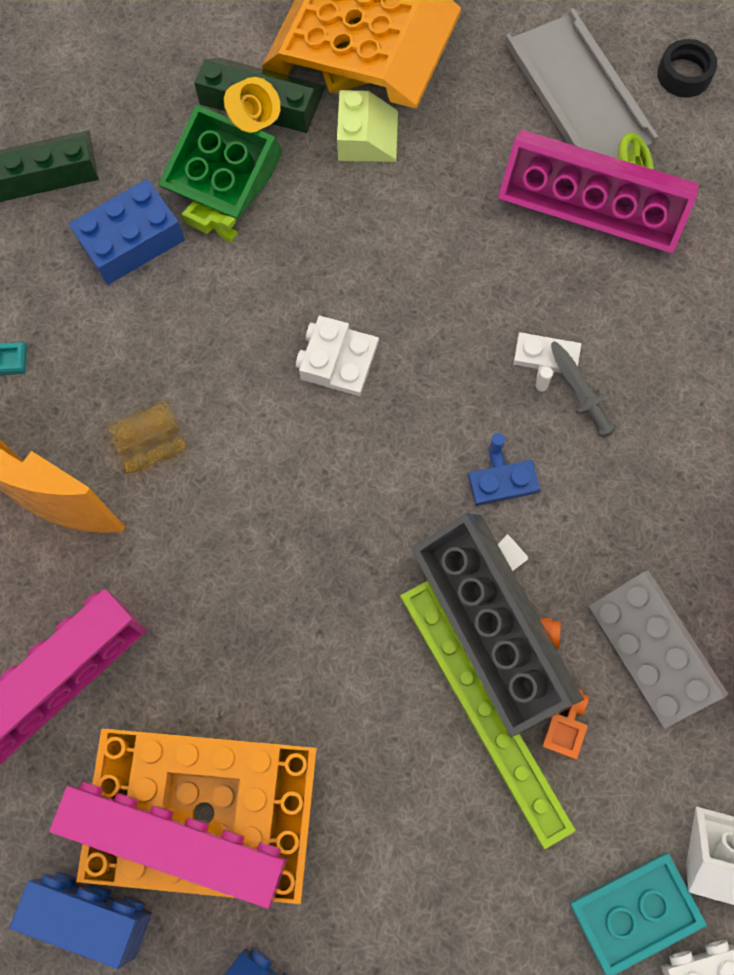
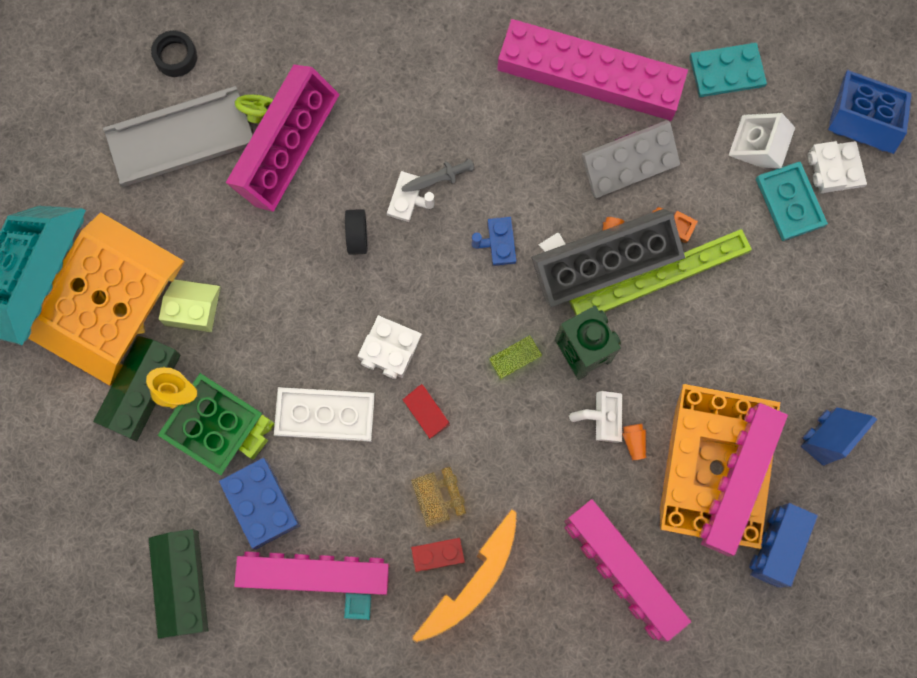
camera: 90 degrees left, 5 degrees up
(43, 303) = (312, 575): none -> dark pink brick
(73, 444) = (437, 554): none -> red plate
(235, 689) = (635, 440): none -> orange cone
(245, 294) = (324, 414): none -> white tile
(258, 411) = (426, 411): none -> red slope
(265, 645) = (607, 416): none -> white plate
(341, 515) = (515, 357): none -> clear neon green tile
(360, 596) = (587, 341): none -> dark green torso
(484, 292) = (356, 231): none -> black tyre

